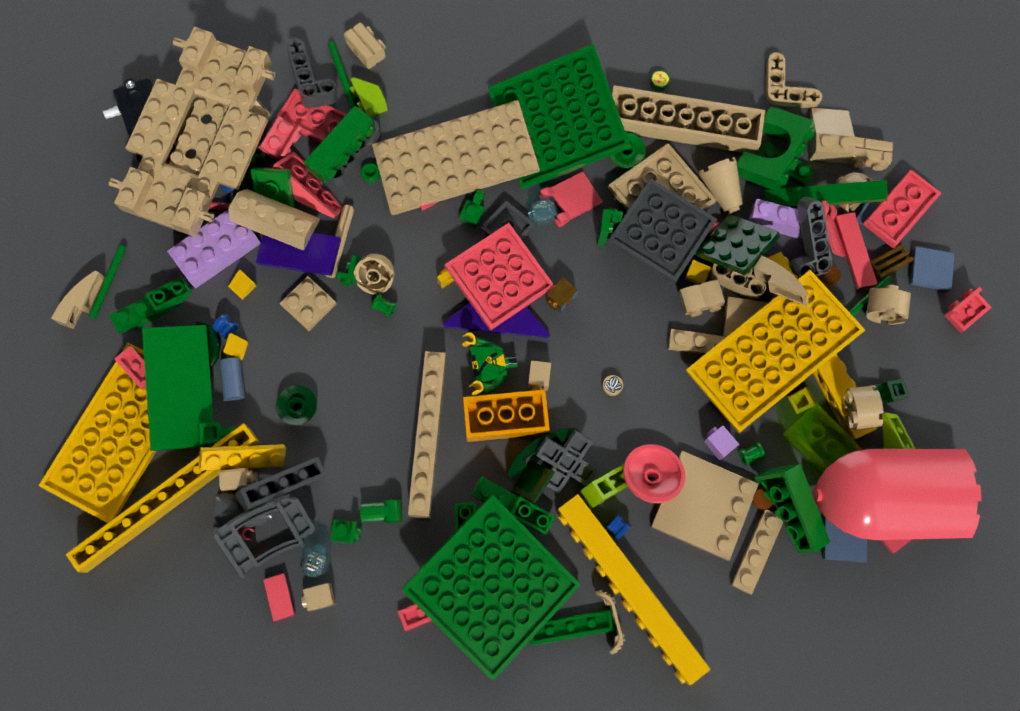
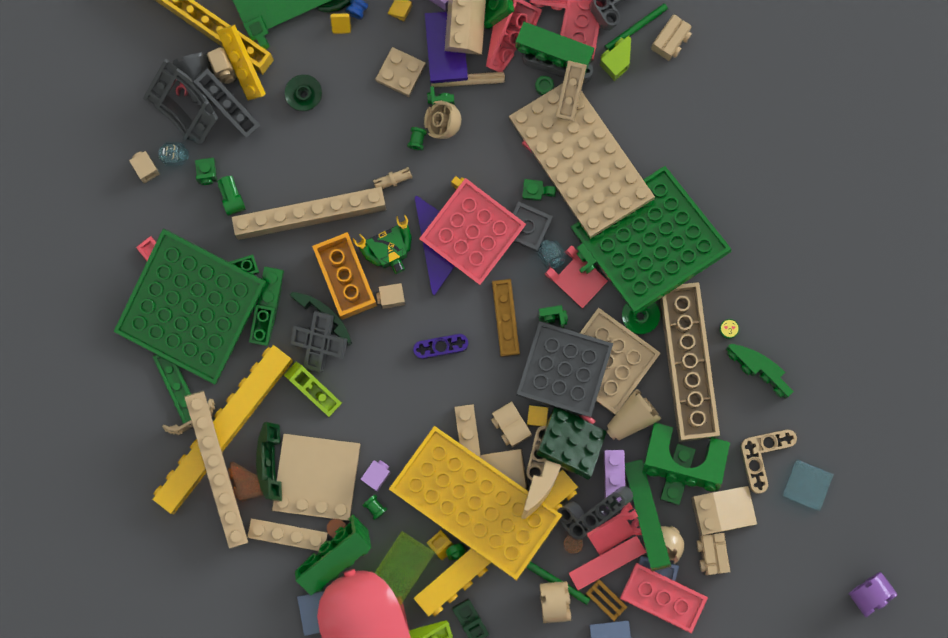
camera: 80 degrees right, 5 degrees up
(232, 379) = (311, 30): sand blue brick -> none
(279, 597) = (136, 134): coral tile -> none
(389, 141) = (571, 90): none -> tan tile
(417, 341) = (393, 178): none -> tan pin
(533, 481) = (292, 317): dark green piece -> none
(557, 178) = (585, 255): none -> green bracket
(561, 295) = (474, 294): pearl gold brick -> none
(592, 274) = (505, 318): none -> pearl gold tile
(610, 330) = (425, 343): none -> dark purple beam
(612, 385) = (403, 365): tile -> none
(618, 527) = (274, 403): blue wheel -> none
(658, 464) = (341, 419): coral dish -> none
(676, 604) = (216, 469): none -> tan brick
(680, 553) = (265, 461): none -> dark green slope
(694, 578) = (246, 483): none -> clear orange slope
(702, 63) = (756, 362): none -> green slope
(816, 386) = (455, 551): none -> green tile
(822, 58) = (808, 485): none -> clear light blue tile
(863, 407) = (439, 593): tan brick -> none
(938, 30) = (873, 594): none -> medium lavender brick

